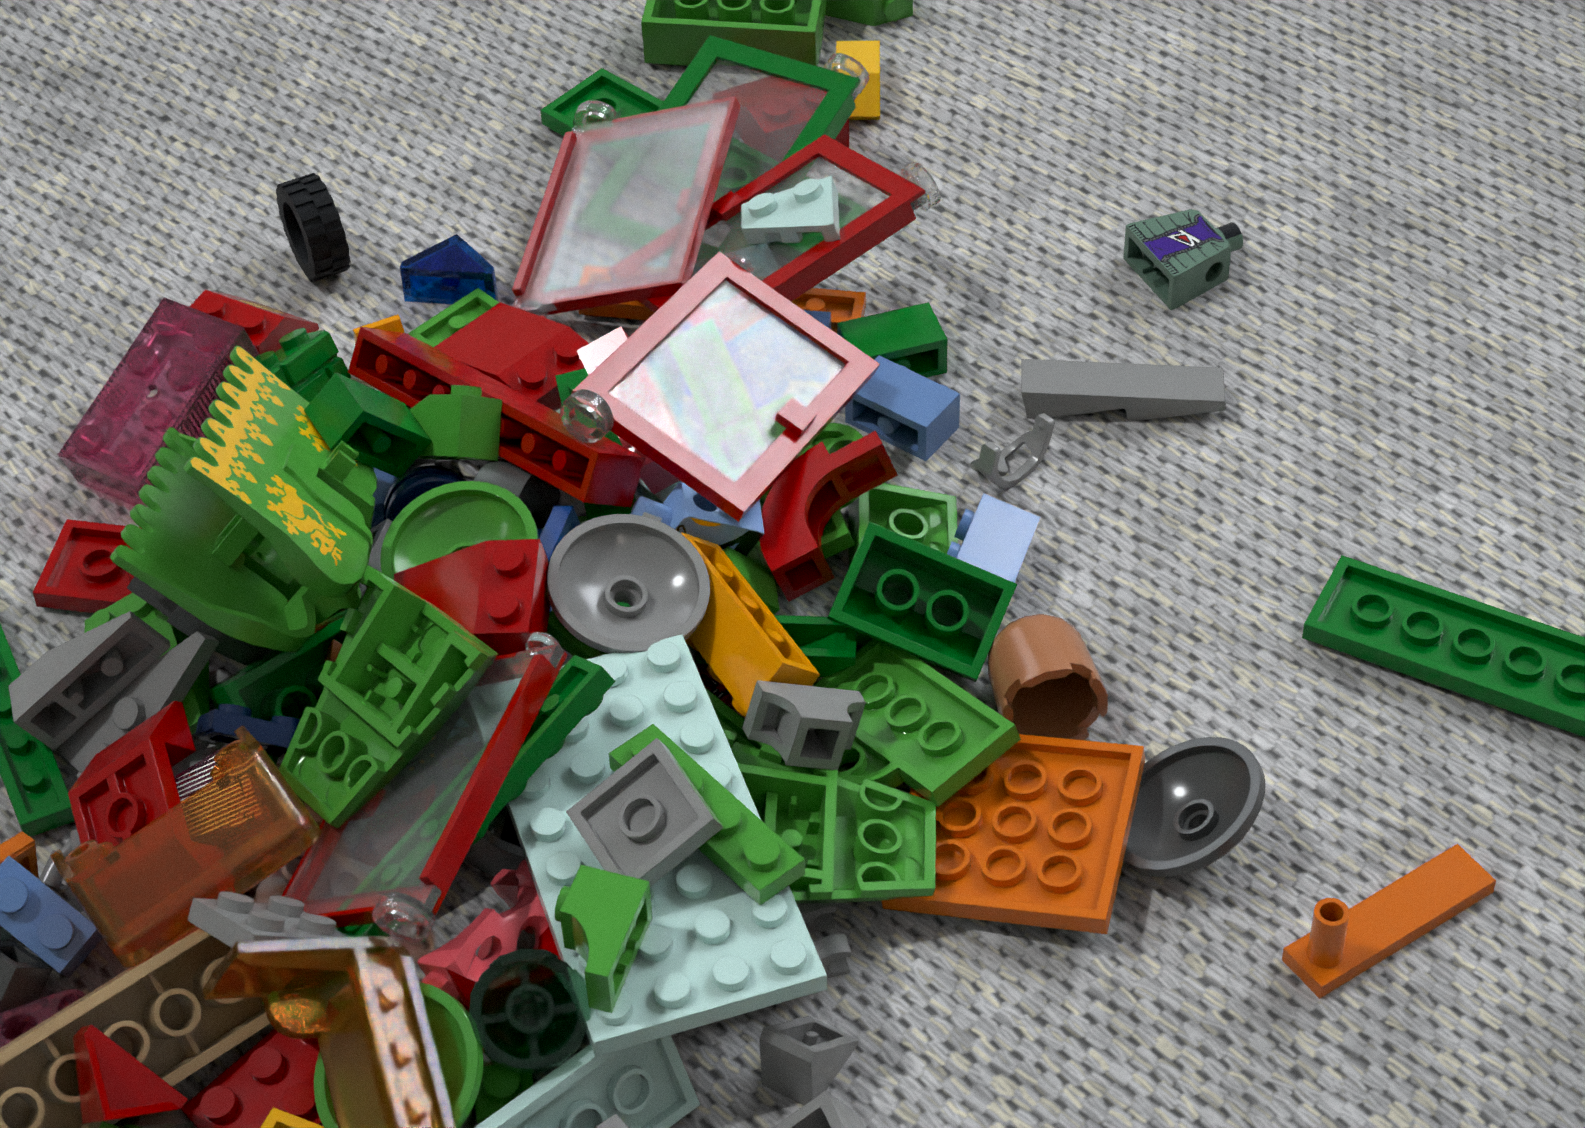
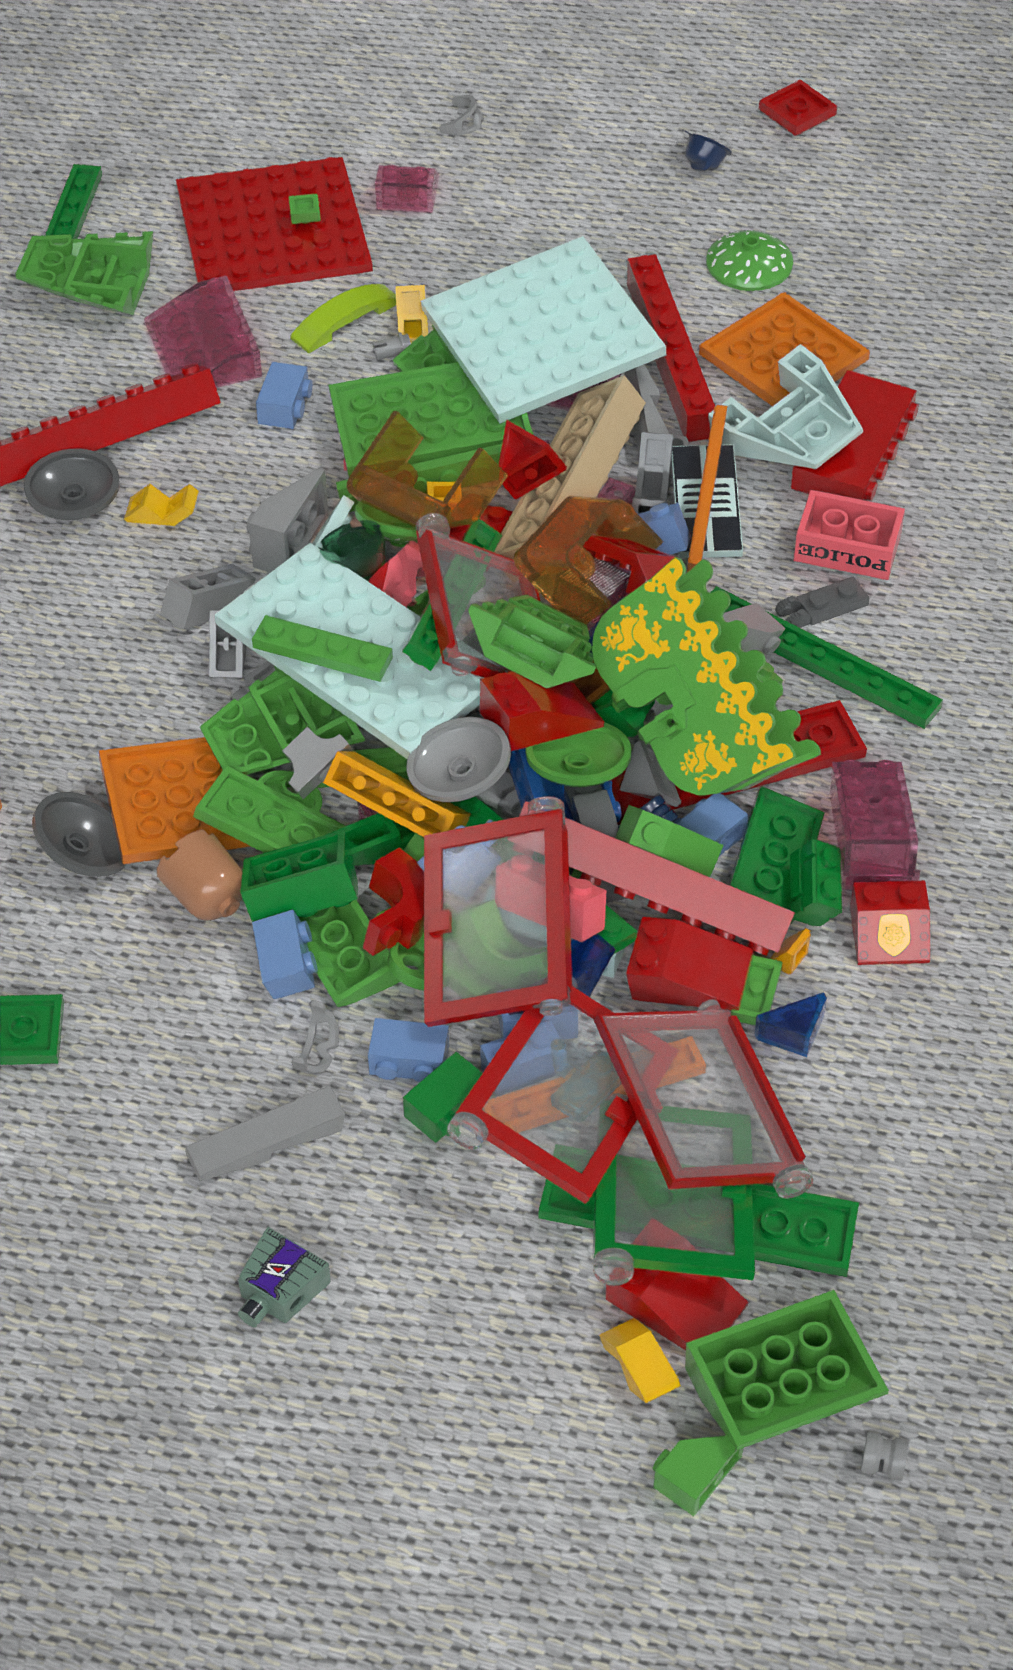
camera: 150 degrees right, 5 degrees up
(239, 919) = (500, 515): light grey plate -> none
(313, 227) = (921, 981): black tyre -> none
(368, 422) = (695, 789): green brick -> none
(605, 923) = (331, 564): bright green arch -> none
(645, 816) = (343, 612): light grey plate -> none
(784, 215) = (548, 1085): light aqua wing -> none

